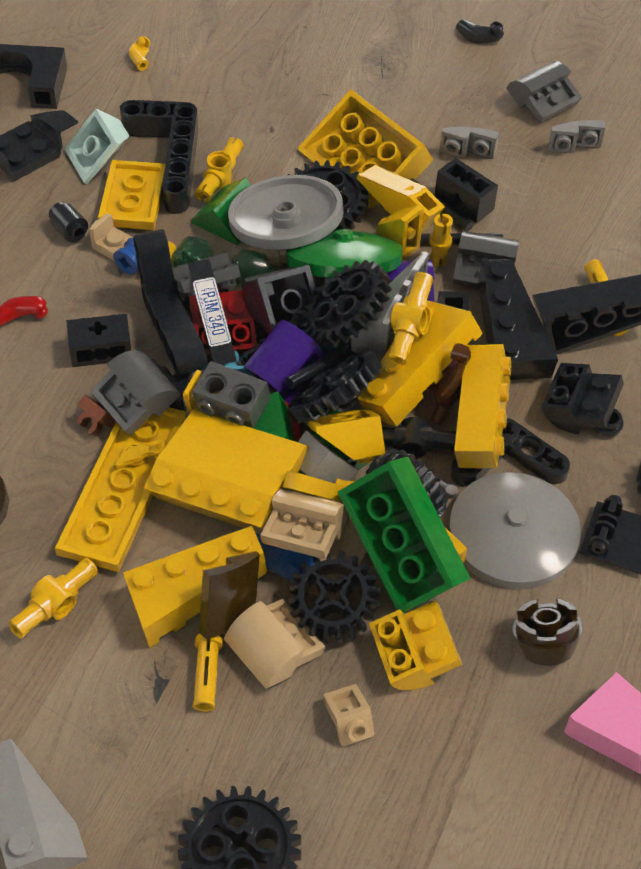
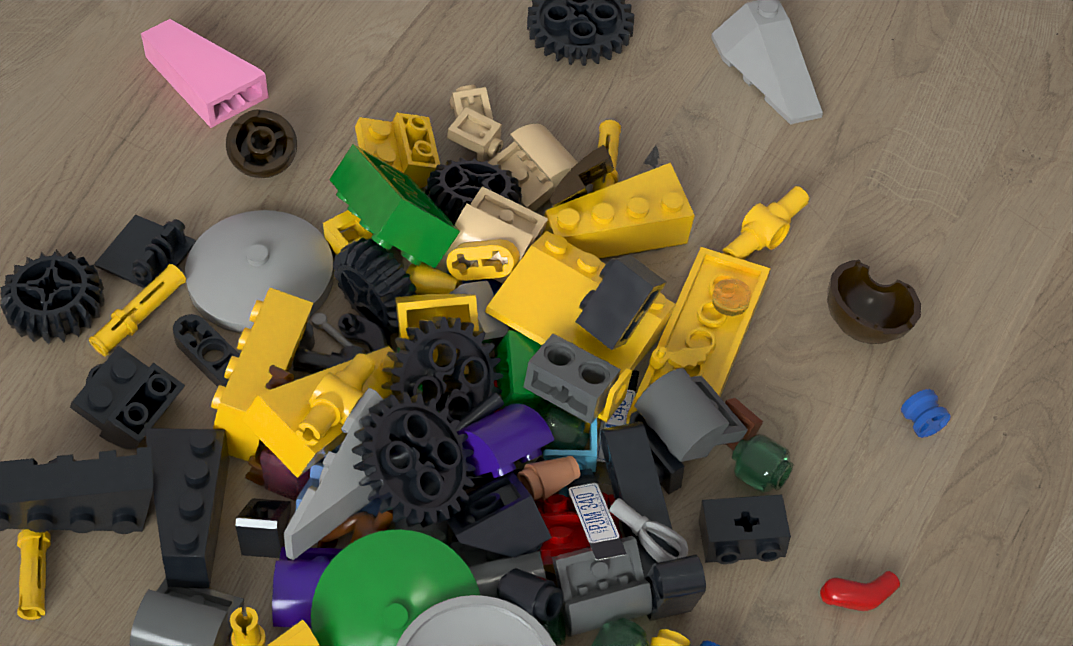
camera: 175 degrees left, 0 degrees up
(78, 379) = (762, 463): none -> clear green head
(93, 510) = (731, 297): none -> clear yellow tile
(177, 301) = (641, 524): none -> light grey piece
(190, 427) = (619, 300): none -> black brick
(246, 337) = (548, 476): none -> nougat cone
(254, 254) = (531, 593): none -> black brick
(339, 668) = (477, 134): none -> tan bracket
(609, 470) = (125, 321): none -> yellow pin

